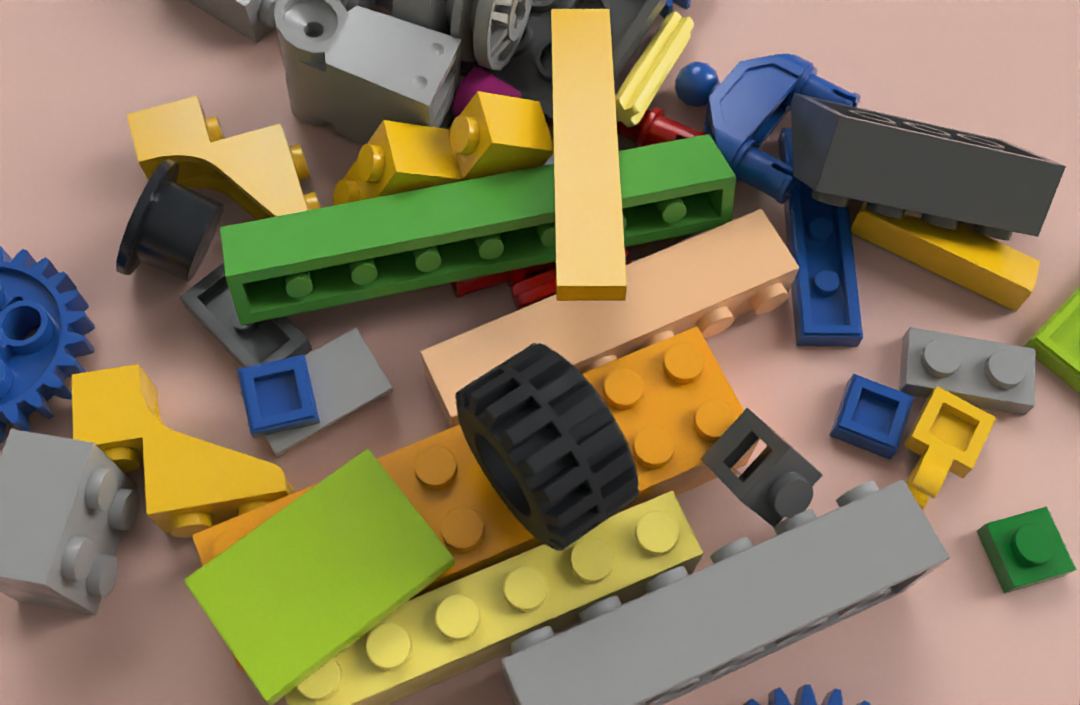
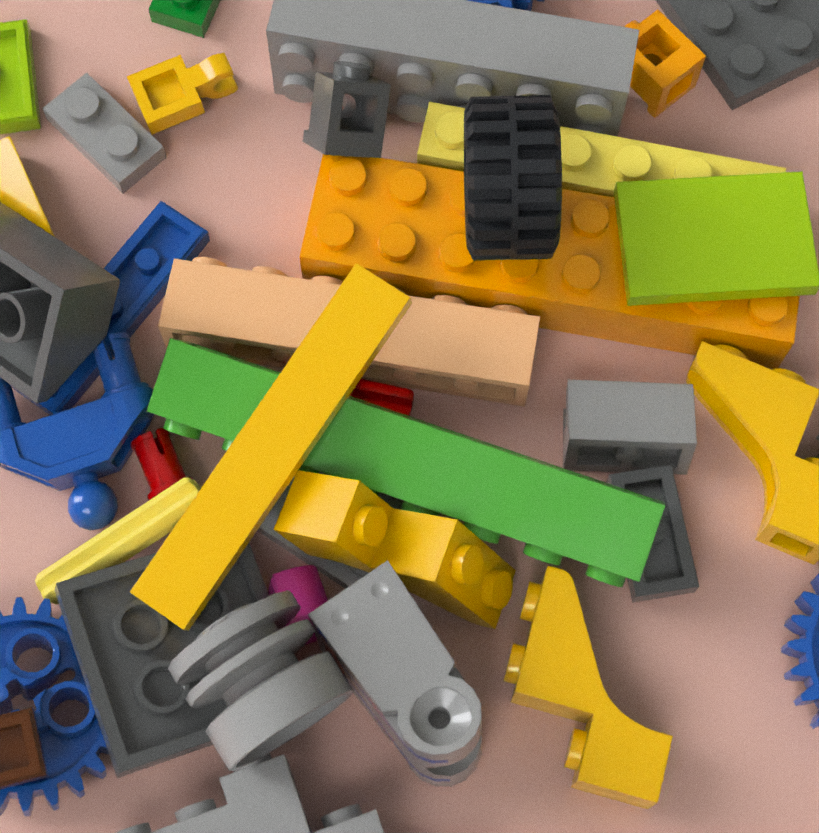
camera: 145 degrees left, 5 degrees up
(169, 226) = (676, 652): black piece -> none
(278, 396) = (667, 415): blue tile -> none
(872, 416) = (206, 148): blue tile -> none

